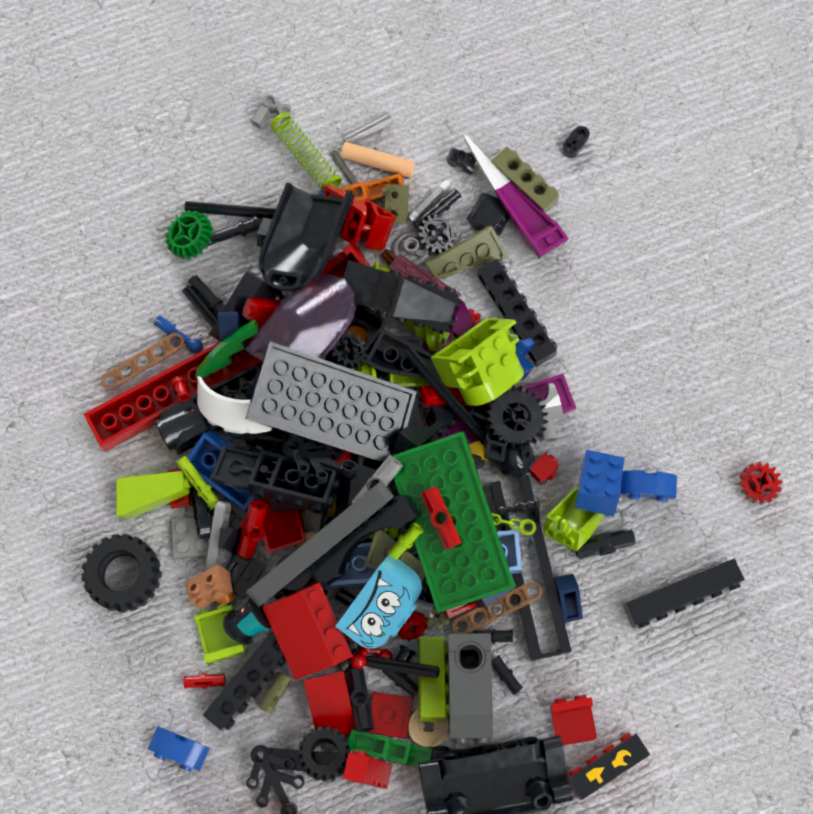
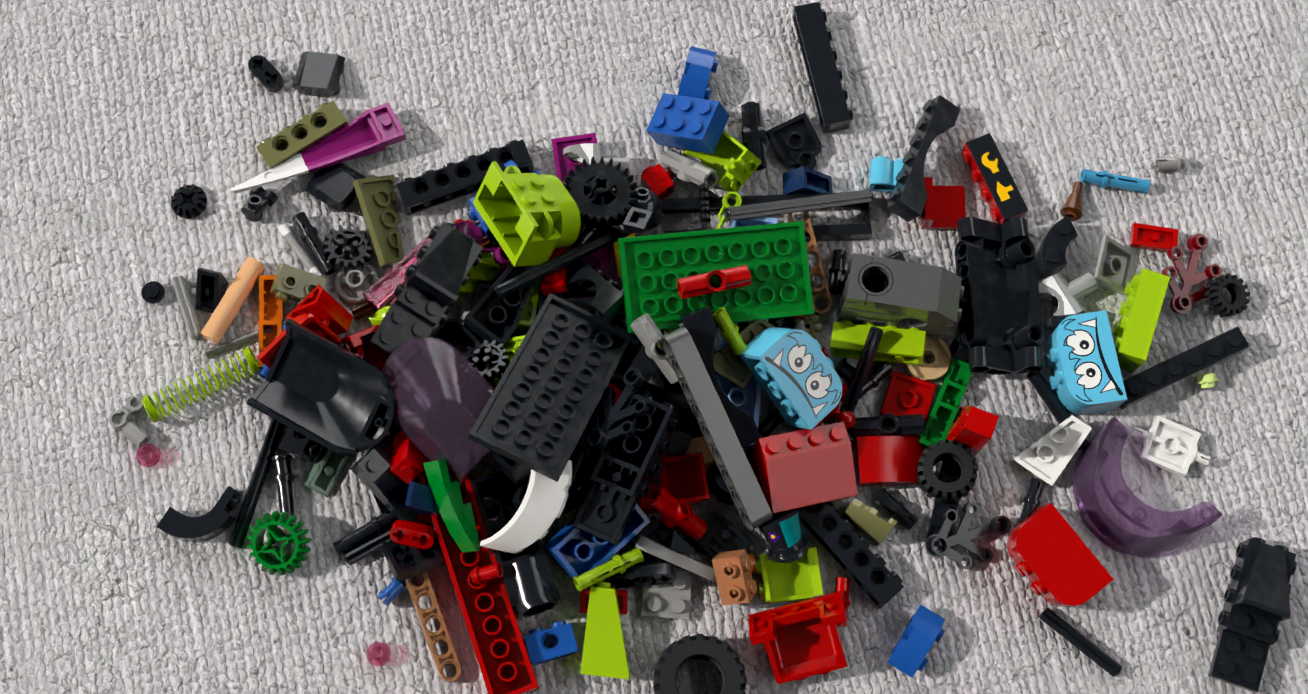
camera: 85 degrees left, 0 degrees up
(117, 321) = (371, 653): none -> clear pink plate
(134, 443) = (540, 653): none -> blue brick
(168, 649) = (802, 637): none -> red windscreen
(193, 167) = (205, 526): none -> black arch
(193, 333) = (411, 561): none -> black slope
(207, 329) = (412, 534): none -> red beam
(243, 125) = (141, 455): none -> clear pink plate
(247, 257) = (326, 471): none -> sand green slope
(290, 717) = (896, 509): none -> black pin
(374, 102) = (153, 292): none -> black plate
(383, 140) = (209, 289): none -> black slope
(457, 117) = (188, 210): none -> black gear
(539, 588) = (798, 205): none -> black axle
(558, 491) = (689, 168): none -> light grey piece
(573, 685) = (909, 192): none -> black arch
(584, 181) = (319, 74): none -> slope
(593, 671) = (883, 173): none -> medium azure brick
(606, 582) = (795, 142): none -> black plate

